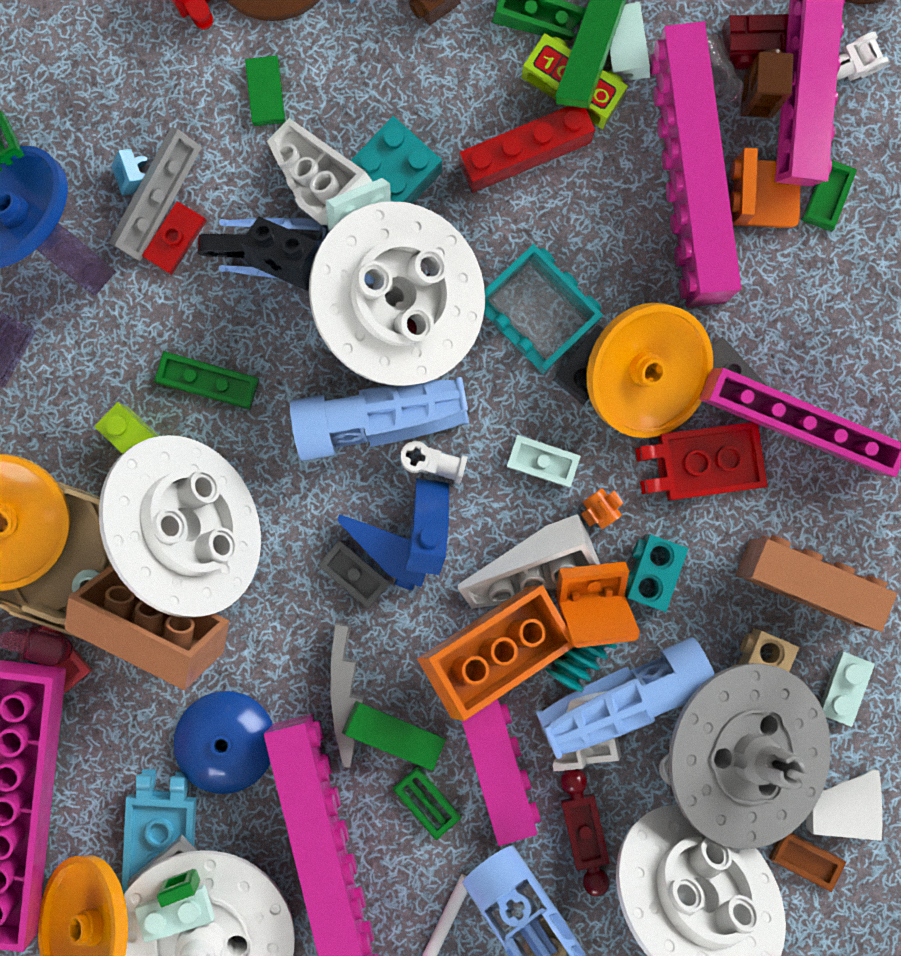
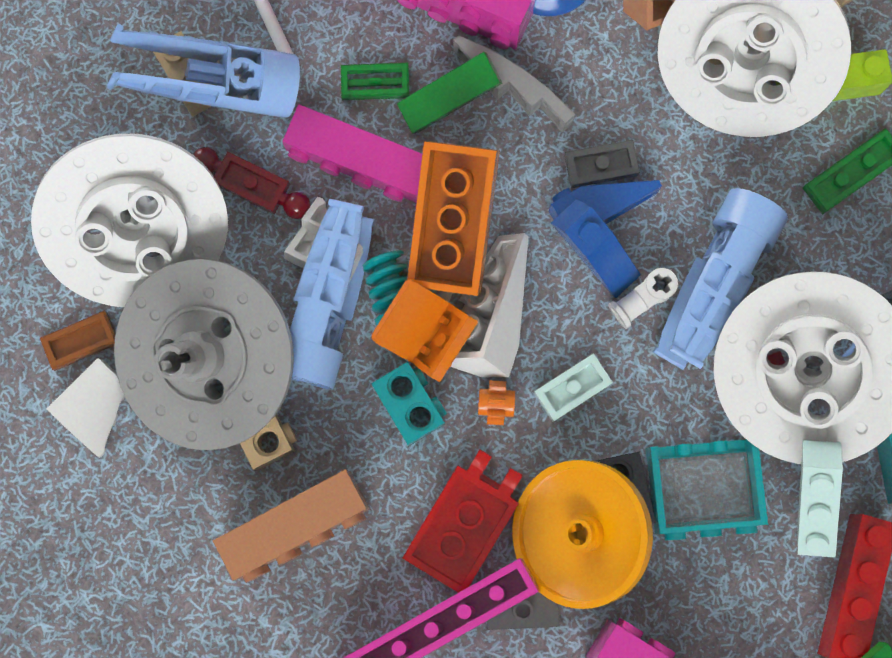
camera: 130 degrees right, 5 degrees down
(488, 220) = (819, 498): none -> light aqua brick
(846, 688) = (185, 485): light aqua plate -> none

